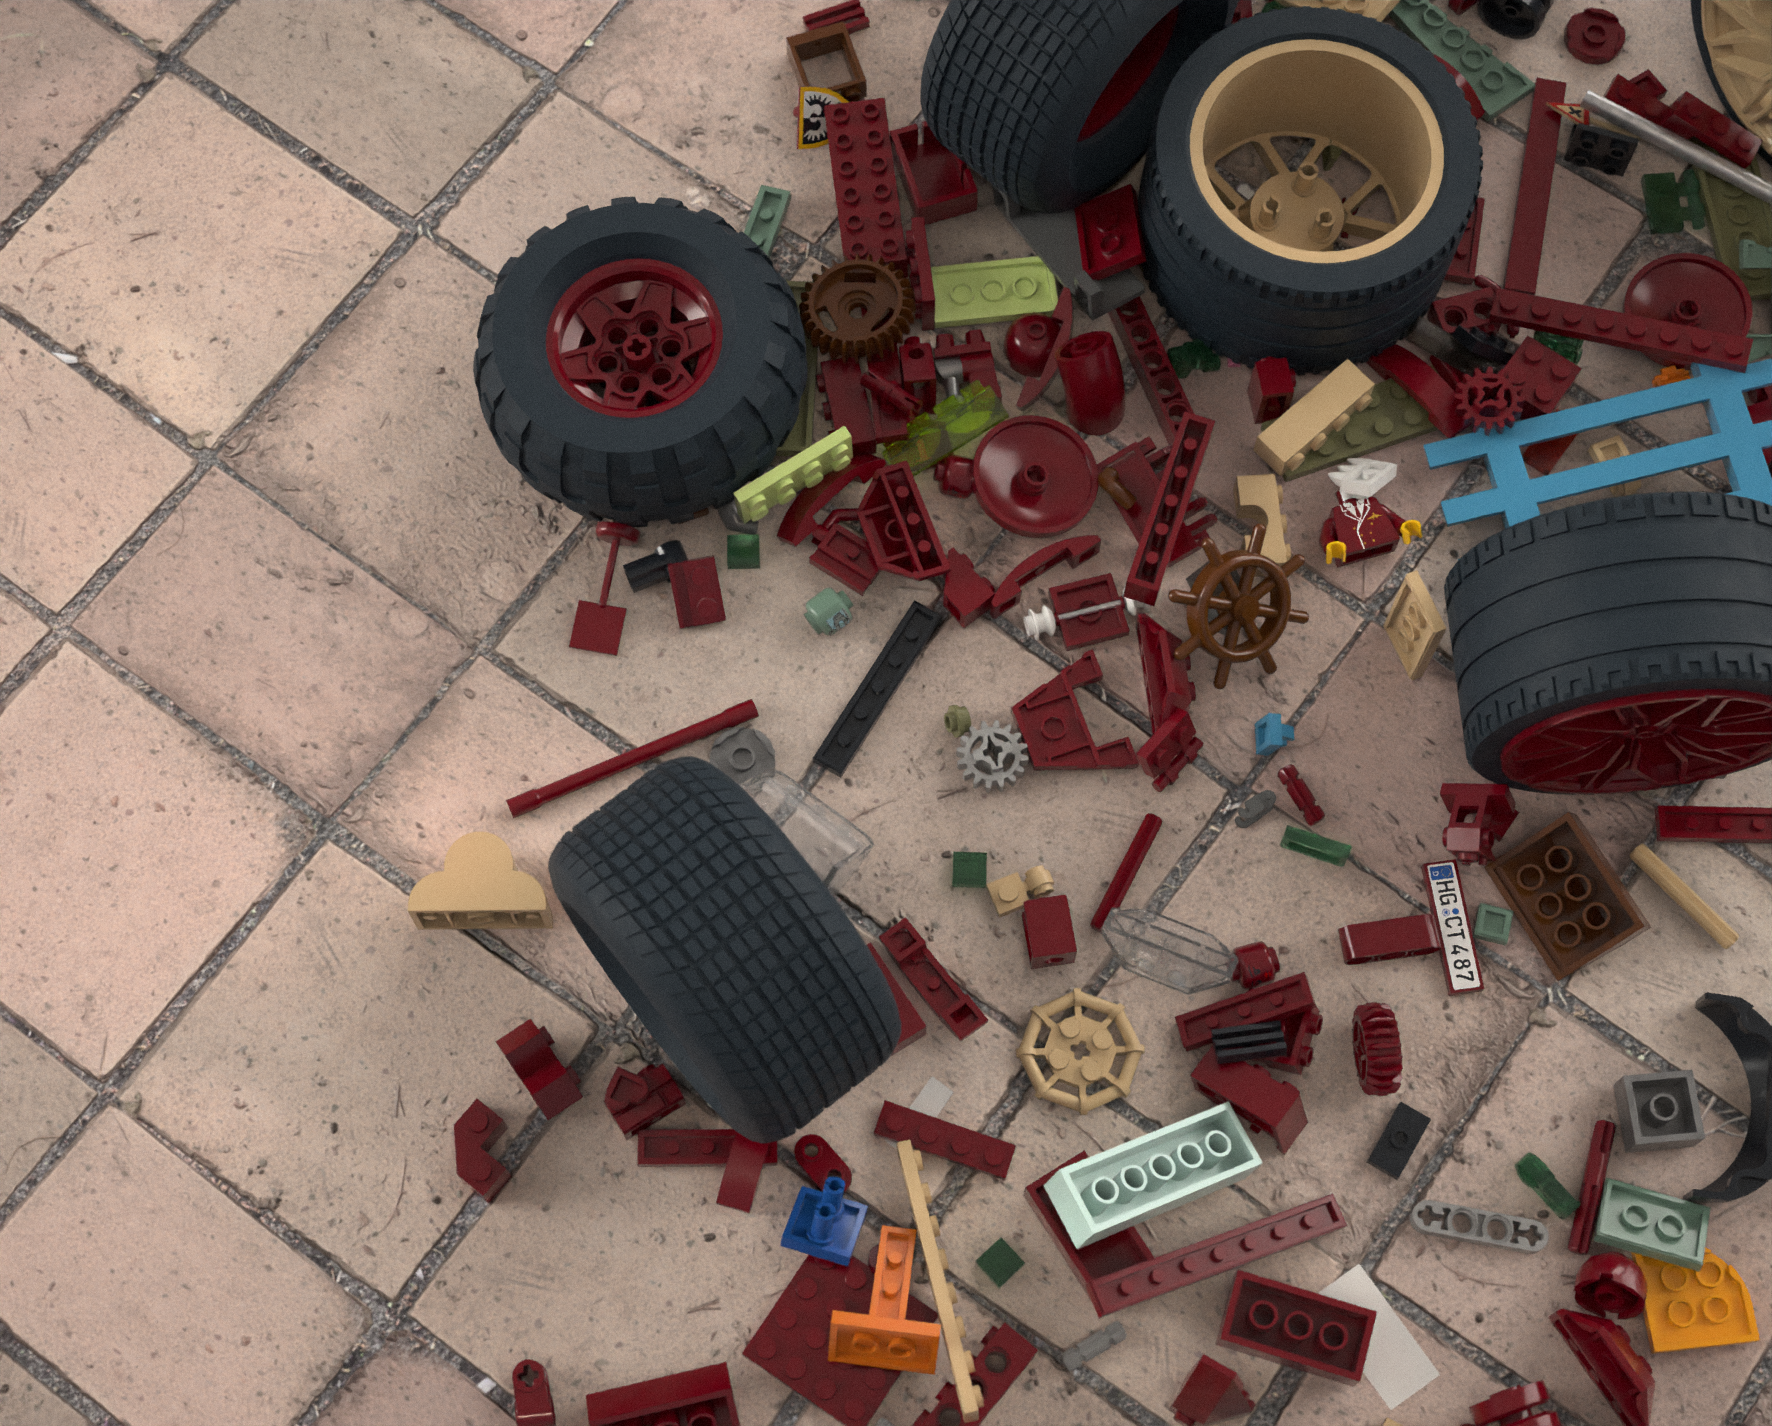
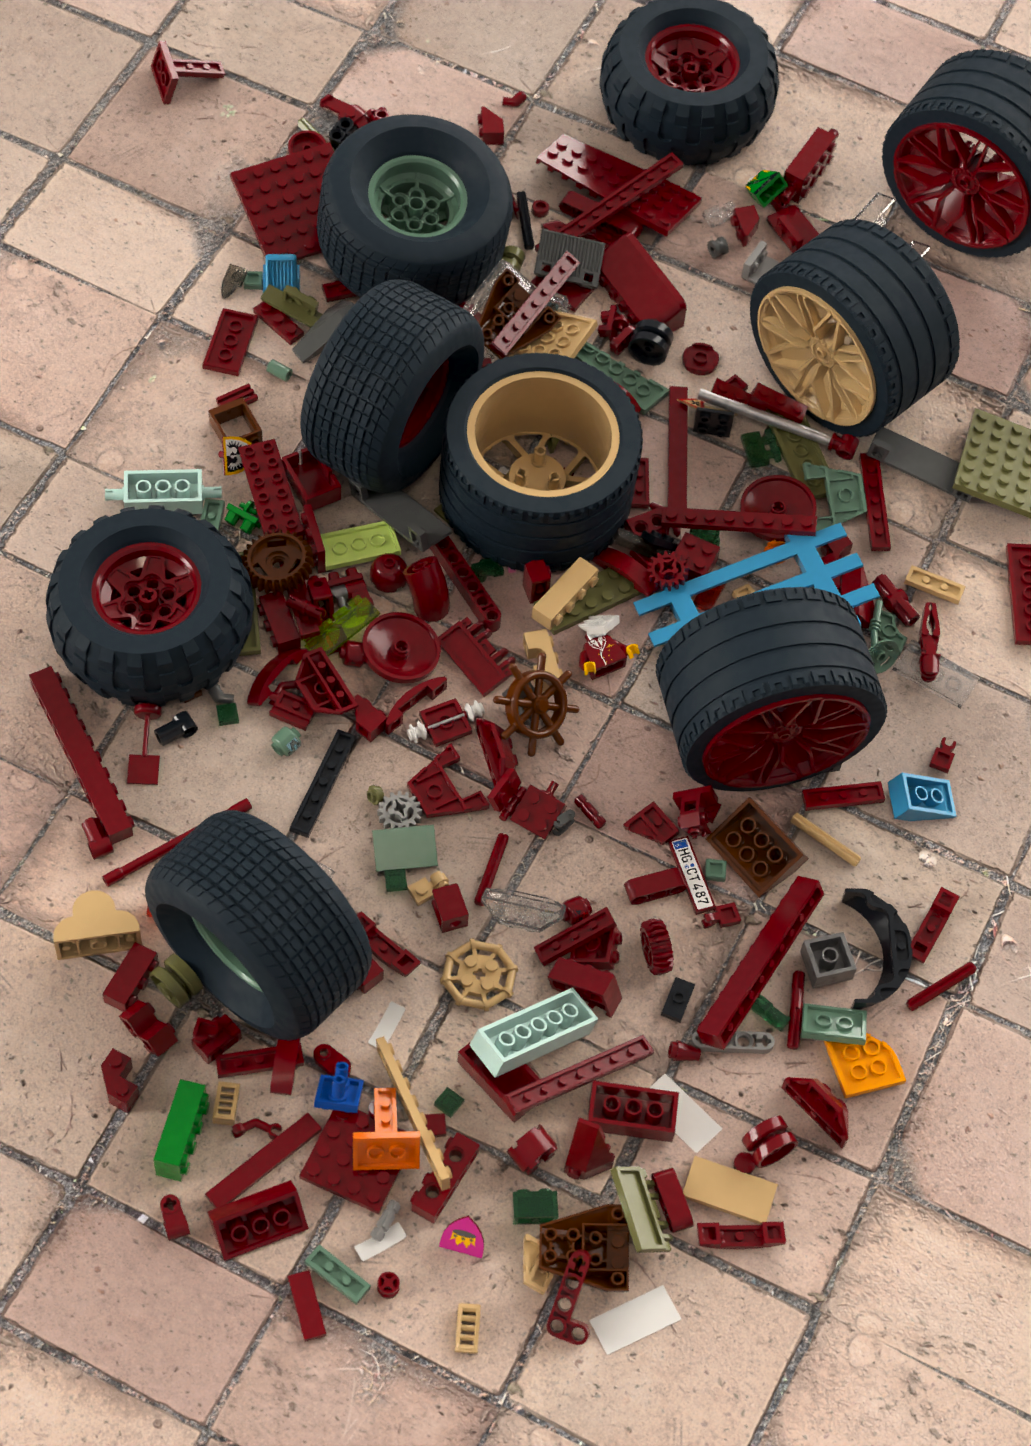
camera: 15 degrees left, 10 degrees down
(503, 594) = (81, 755): none -> dark red brick
(508, 742) = (98, 842): none -> dark red piece
(526, 978) = (130, 977): none -> dark red brick
(564, 1252) = (181, 1130): none -> green brick
(593, 998) = (176, 980): none -> olive wheel
(636, 1238) = (226, 1119): none -> tan slope
(661, 1259) = (240, 1128): none -> dark red arm
(689, 1320) = (263, 1161): none -> dark red tile
(696, 166) = (165, 488): none -> light aqua brick
(696, 592) = (202, 739): dark red plate -> none
(794, 474) = (253, 662): yellowish green plate -> none
(804, 216) = (250, 522): none -> green hips
(945, 1140) = (405, 1036): dark red plate -> none
(971, 1299) = (437, 1124): none -> dark red tile
(991, 819) = (404, 848): none -> sand green tile
(1033, 388) = (393, 597): dark red slope -> none
(1093, 1346) = (501, 1149): light grey axle -> none
(1109, 483) = (447, 646): reddish brown arm -> none
(1110, 233) = (426, 500): dark red plate -> none
(1123, 1371) = (533, 1148): none -> dark red brick
(1169, 509) = (485, 654): dark red brick -> none
(1218, 783) = (539, 810): none -> dark red plate
(1248, 1037) = (579, 952): black tile -> none
(1271, 734) = (567, 778): dark azure tile -> none
(1315, 846) = (603, 838): clear green tile -> none
(1394, 1234) = (683, 1052): none -> dark red cone
(1400, 832) = (652, 824): none -> dark red wing
(1414, 625) = (642, 702): tan tile -> none
(1497, 1006) = (725, 915): none -> dark red plate
(1544, 1100) = (760, 962): none -> dark red brick
(1611, 1285) = (815, 1061): dark red cylinder -> none

